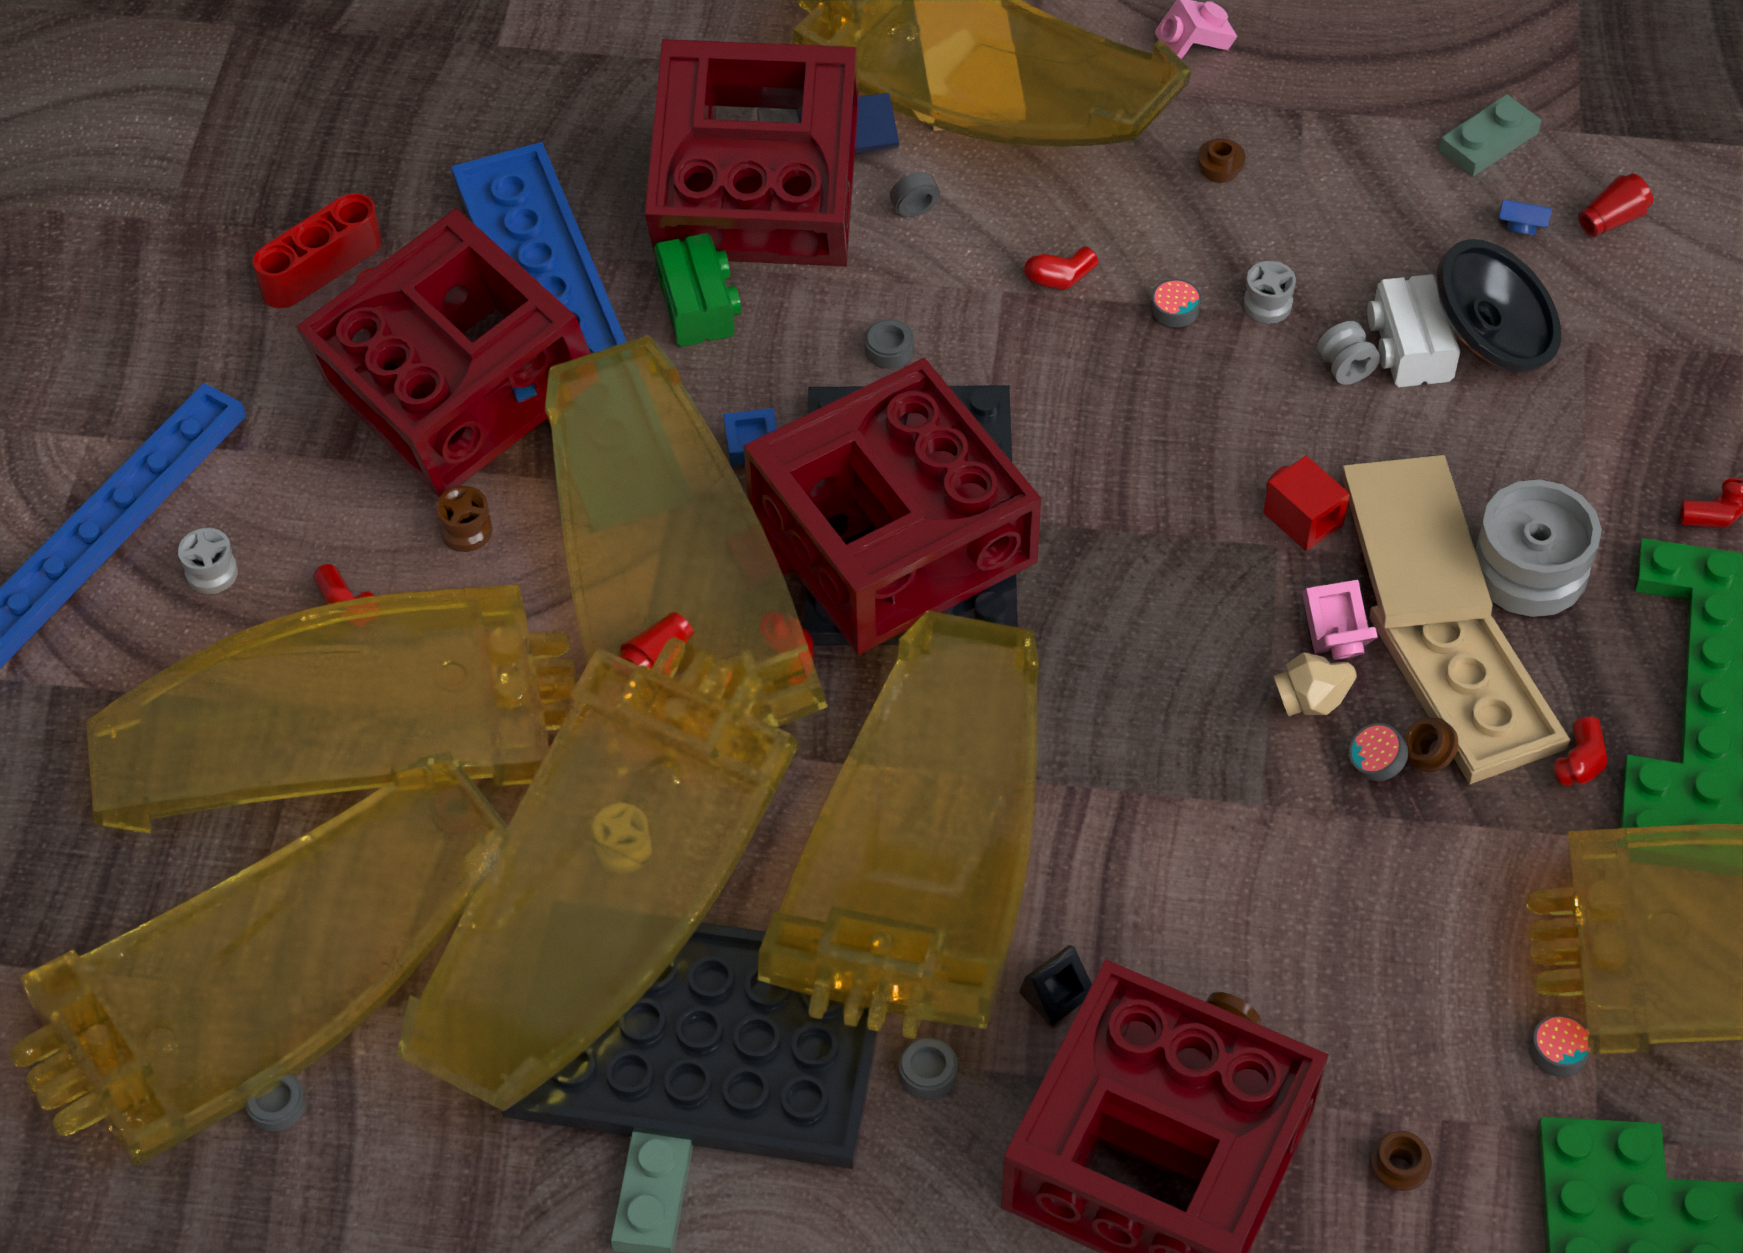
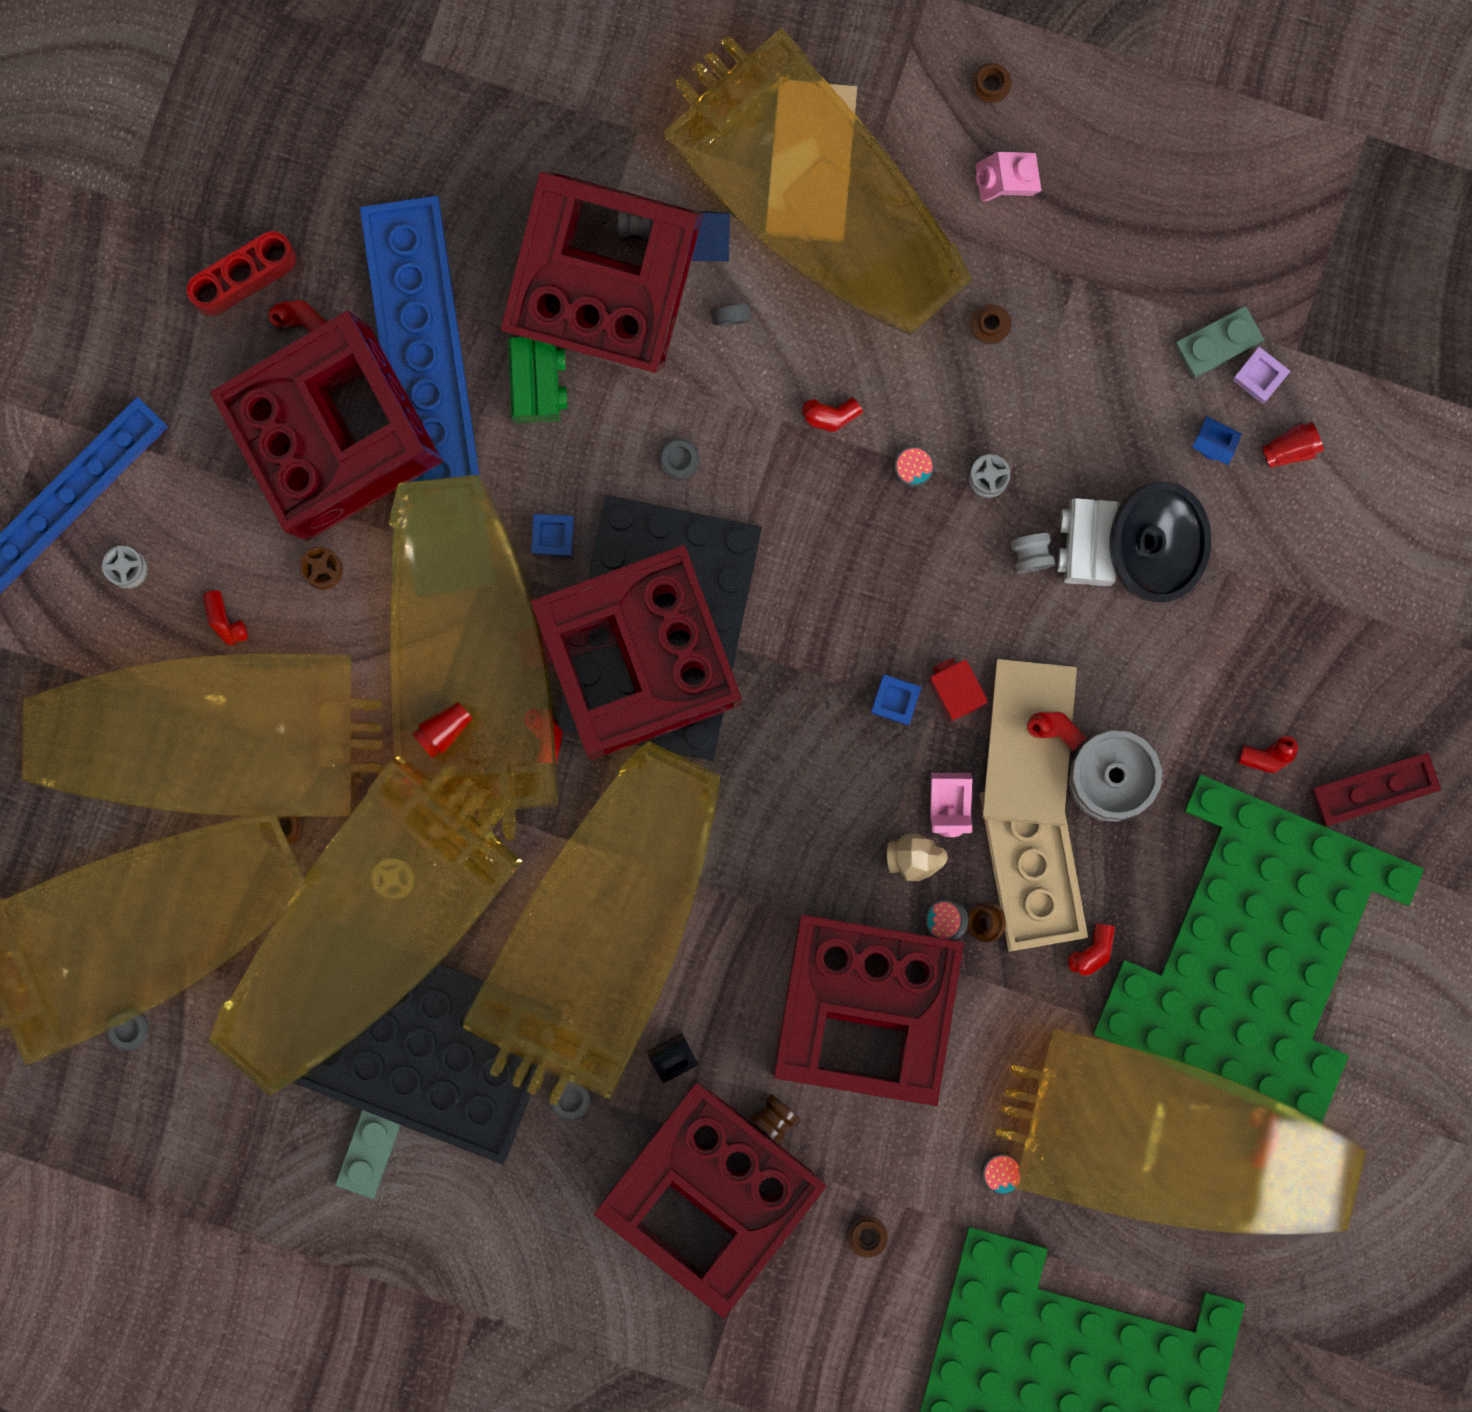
camera: 10 degrees right, 30 degrees up
(1231, 528) = (896, 700): none -> blue plate
(1312, 840) = (885, 1001): none -> dark red piece
(1443, 505) = (1055, 725): none -> red arm
(1550, 150) = (1261, 375): none -> lavender plate

